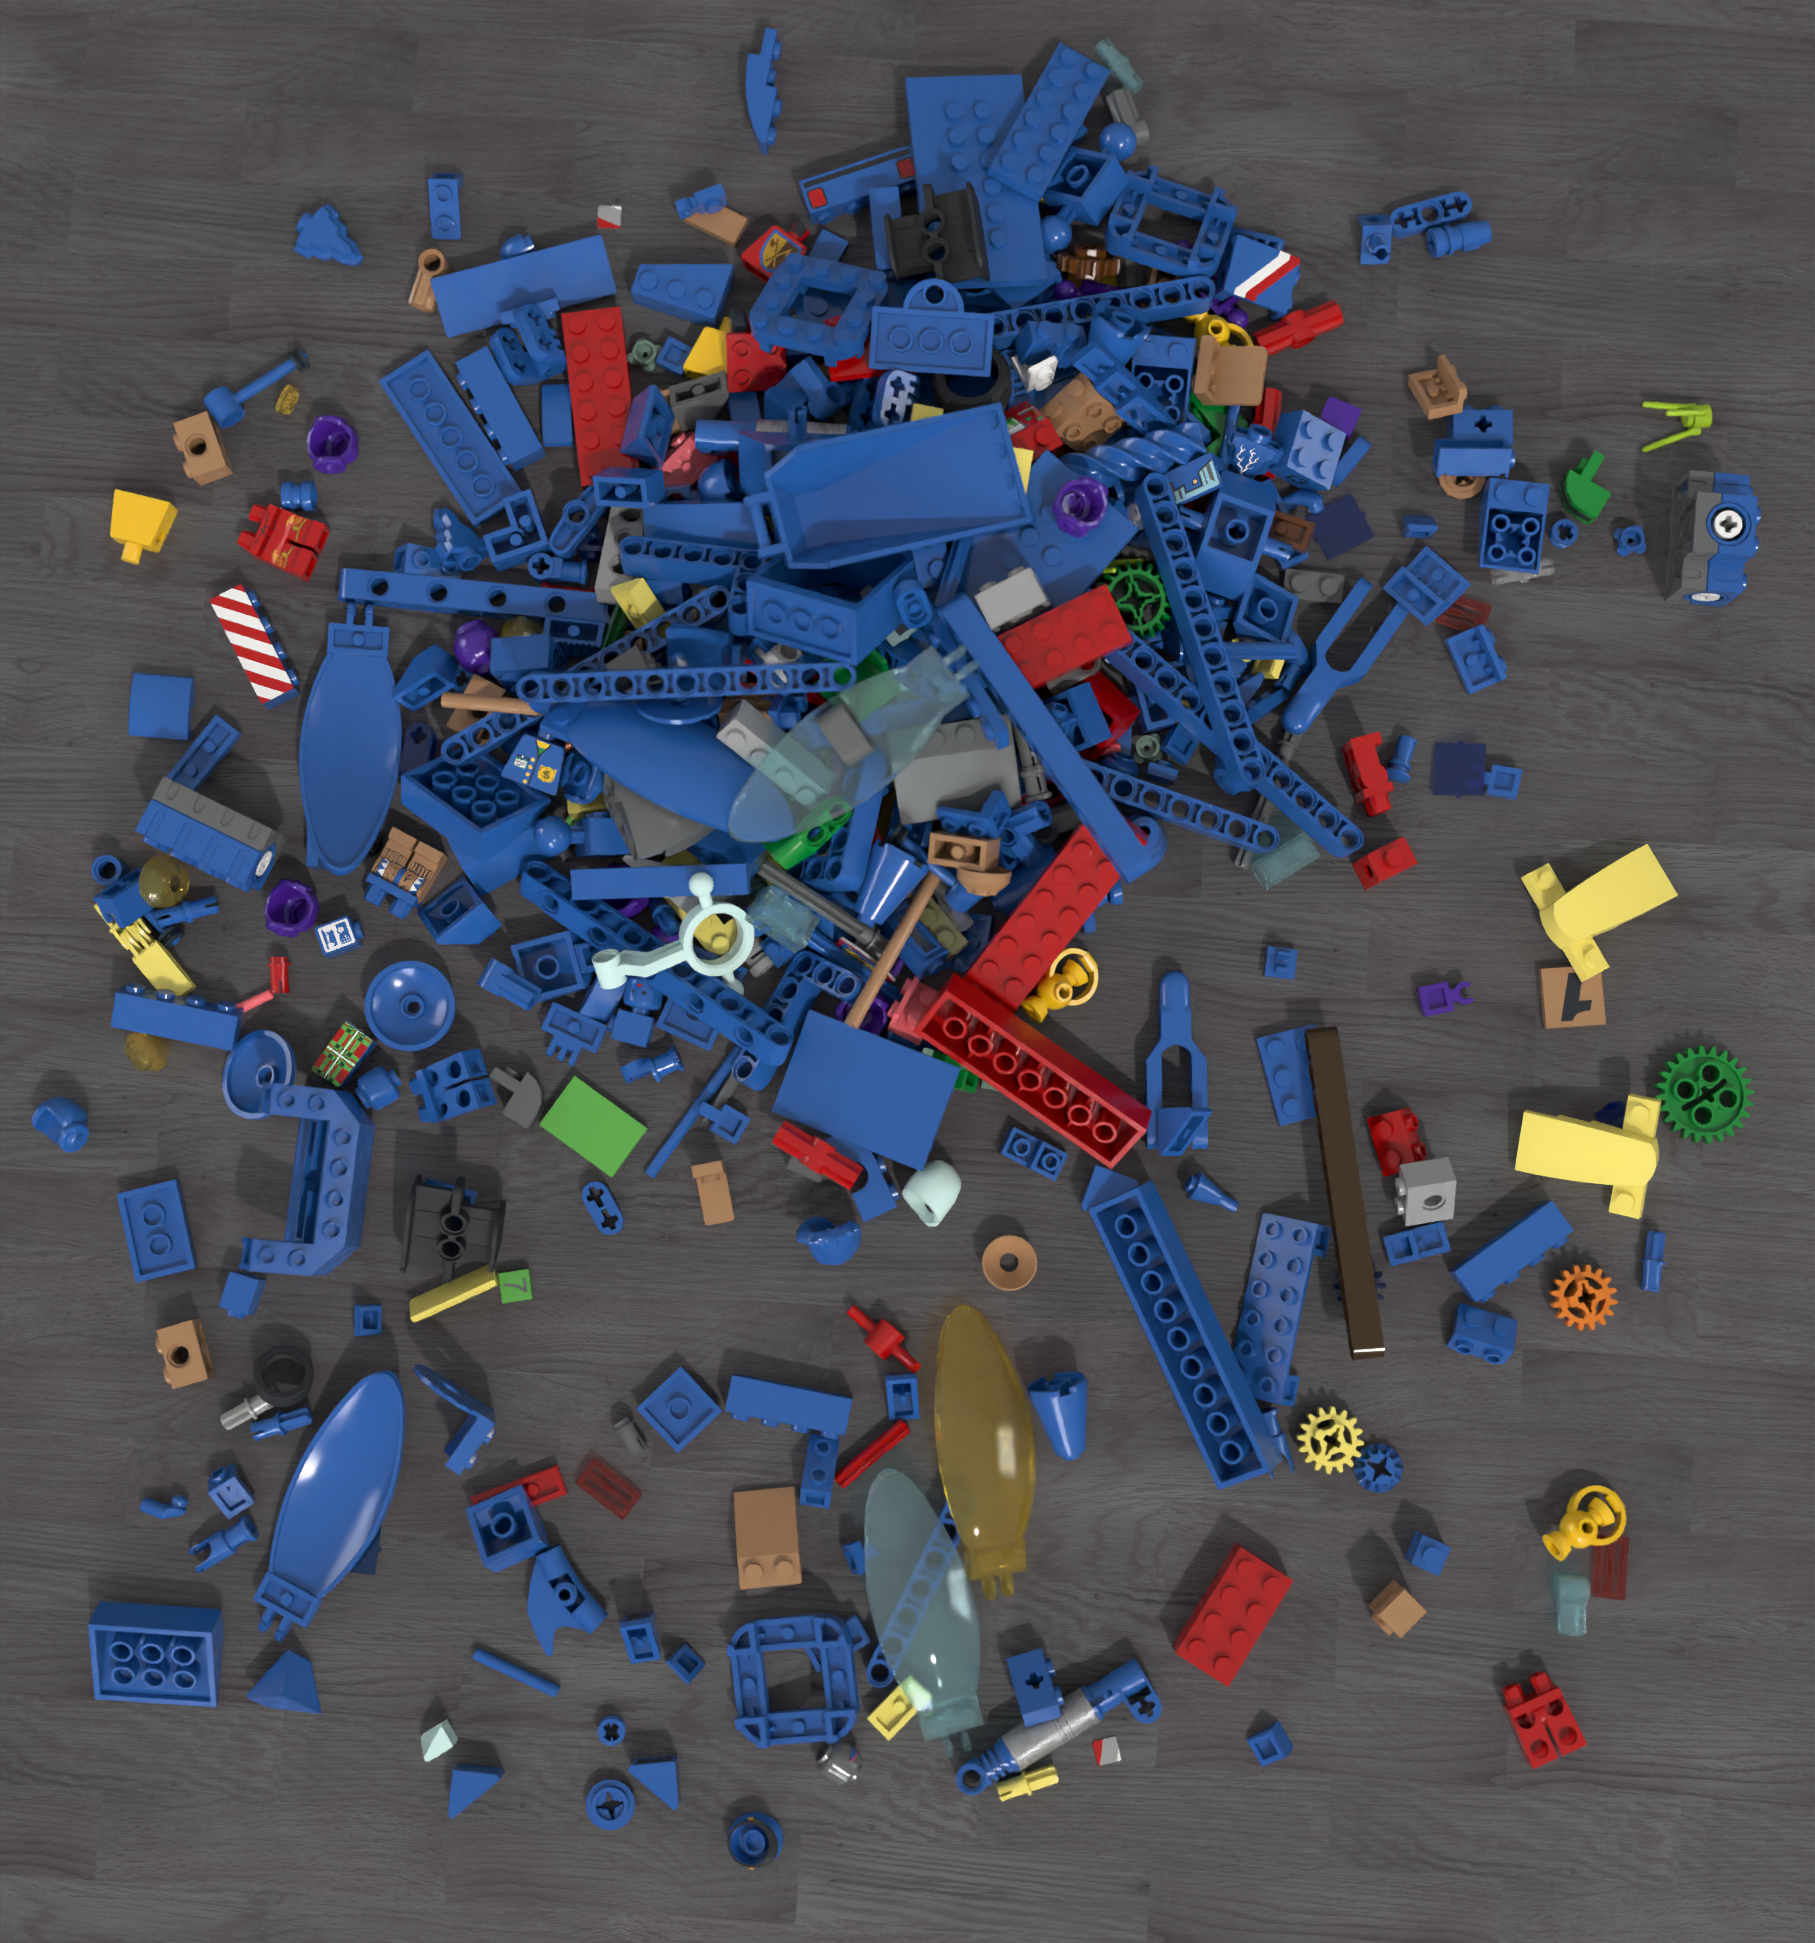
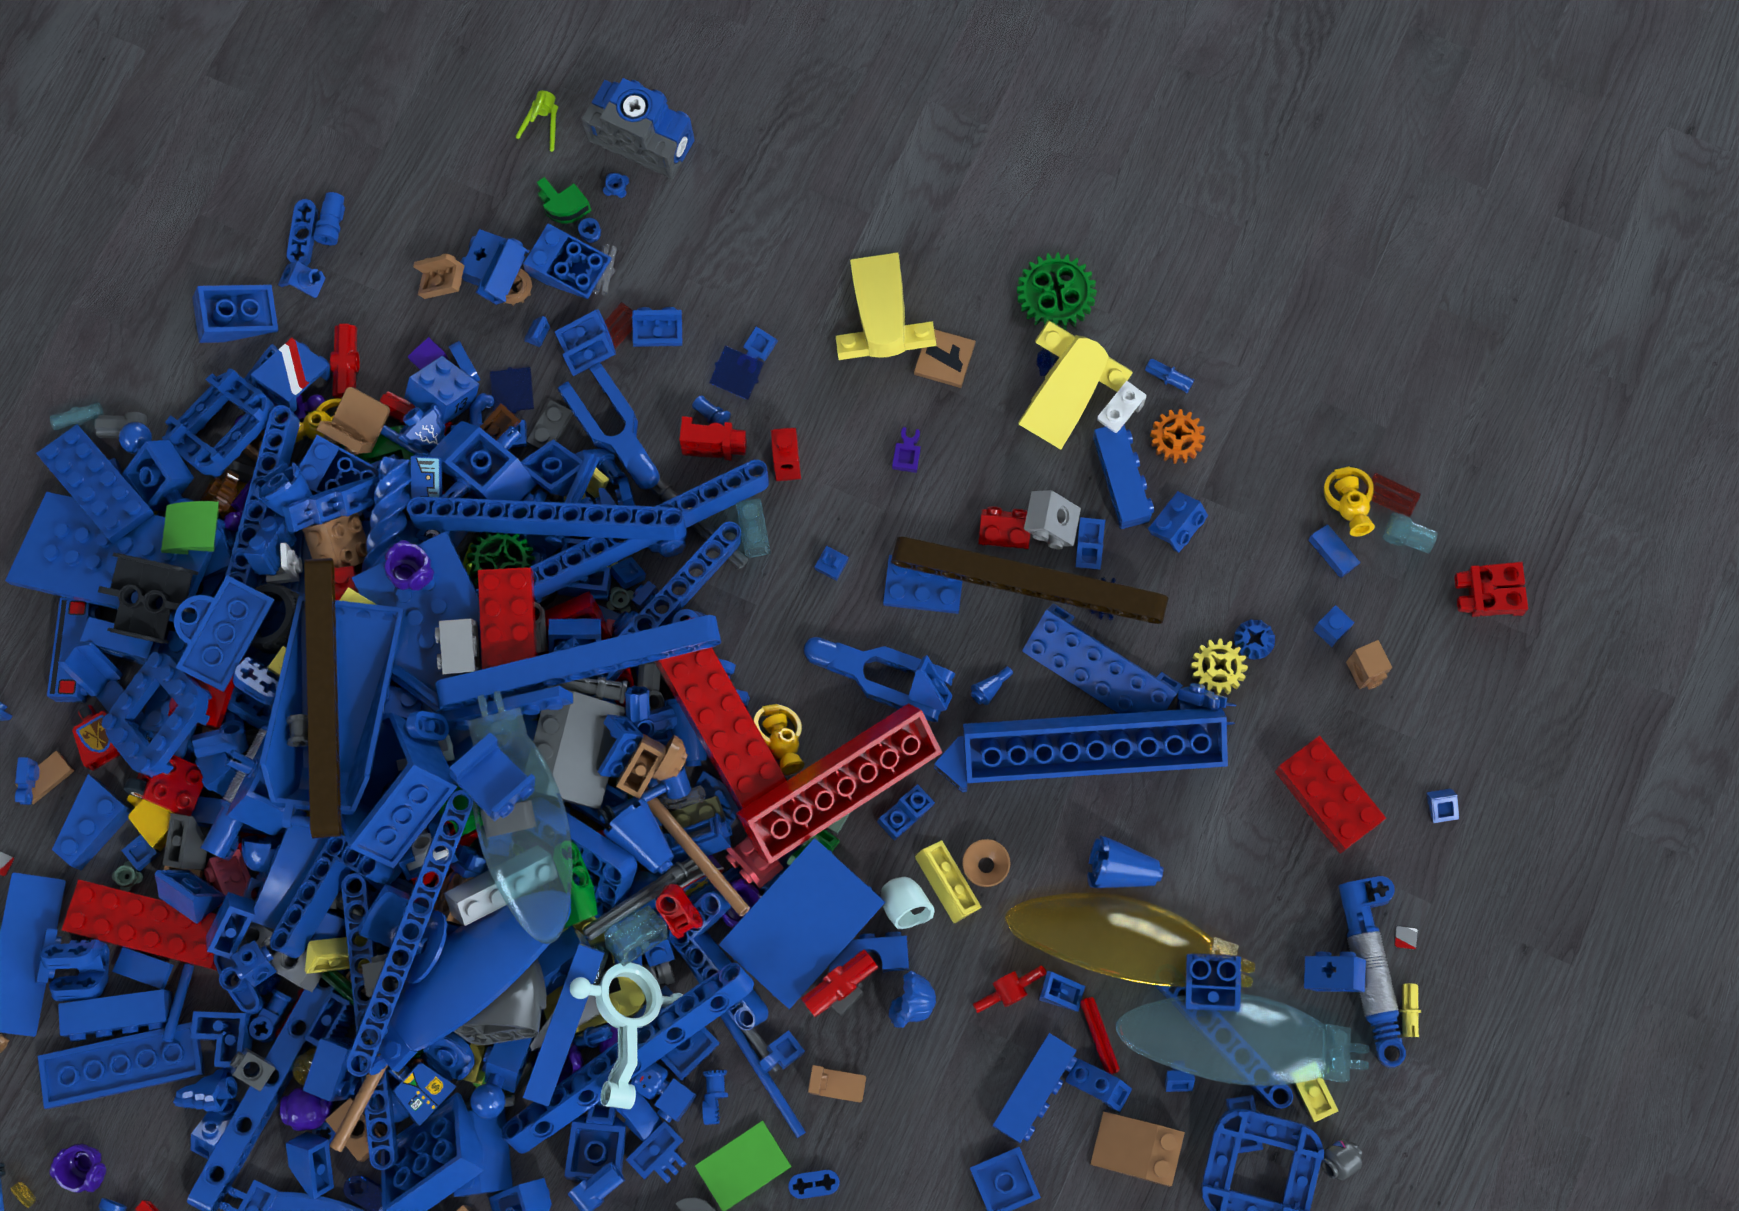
camera: 65 degrees left, 10 degrees down
(485, 585) = (257, 1079): none -> dark grey brick
(534, 468) = (178, 1002): none -> blue bar
(599, 530) = (253, 963): none -> blue brick
(822, 957) = (679, 915): none -> red piece
(846, 211) = (89, 667): none -> blue panel
(852, 470) = (298, 730): none -> dark grey bush
(878, 700) = (491, 778): none -> blue panel
(897, 478) = (322, 698): none -> dark brown beam
(971, 1559) = (1213, 982): none -> blue slope
(975, 1227) = (947, 881): none -> light yellow slope
(1036, 249) = (190, 527): none -> bright green slope
(1286, 1429) = (1199, 696): none -> blue plate
(1306, 181) = (234, 312): none -> blue slope
(1517, 1523) = (1334, 551): none -> blue slope
(1590, 1222) = (1122, 407): none -> white bracket

